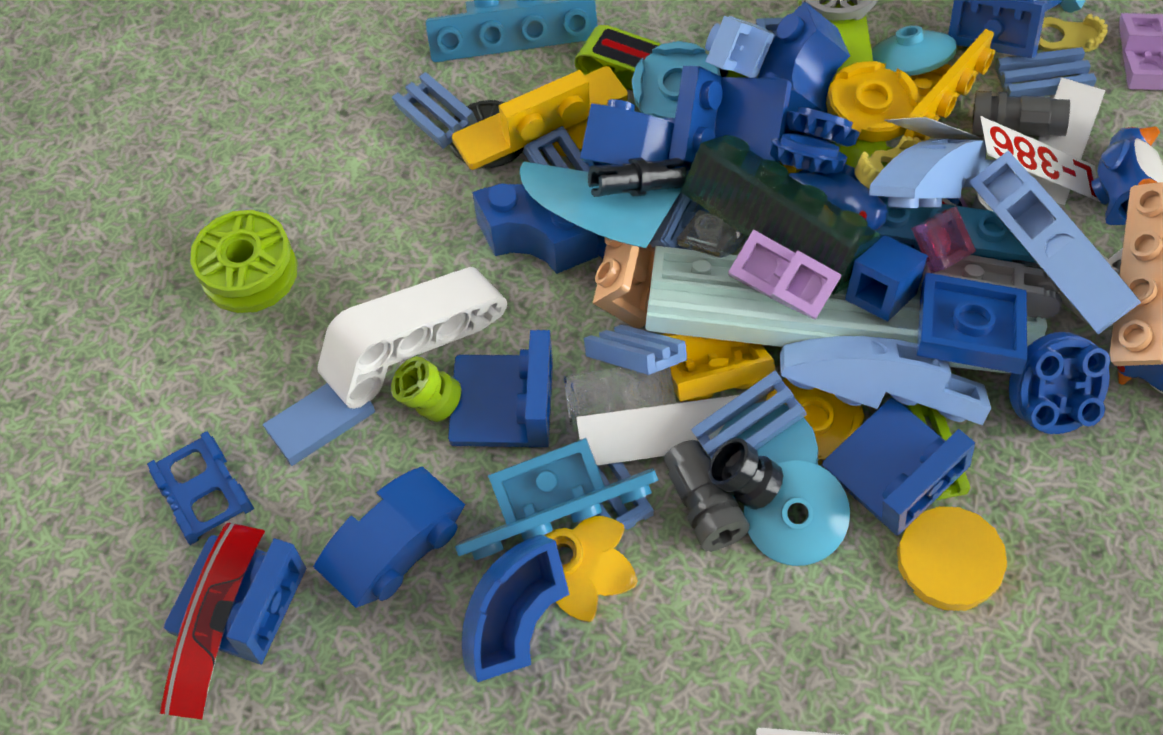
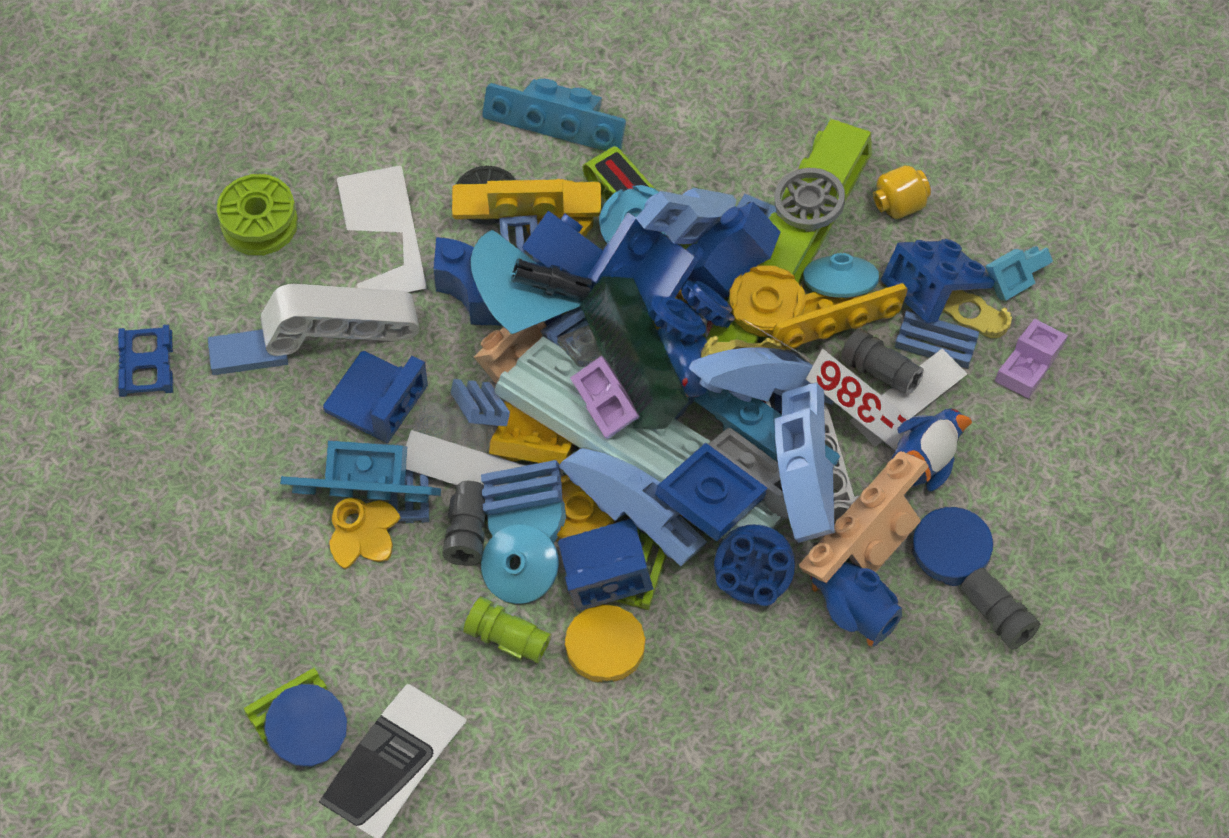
camera: 25 degrees right, 0 degrees up
(206, 621) = (104, 447): red sticker -> none
(259, 603) = (131, 443): blue bracket -> none
(373, 554) = (246, 451): blue brick -> none
(375, 191) = (381, 203): none -> white sticker
(419, 94) = (453, 139): medium blue tile -> none
(419, 385) = (324, 362): lime wheel -> none
(508, 606) = (289, 527): blue brick -> none
(752, 478) = (494, 519): black wheel -> none
(843, 600) = (512, 633): none -> lime axle
(886, 277) = (677, 432): blue brick -> none
(943, 239) = (733, 425): clear pink plate -> none

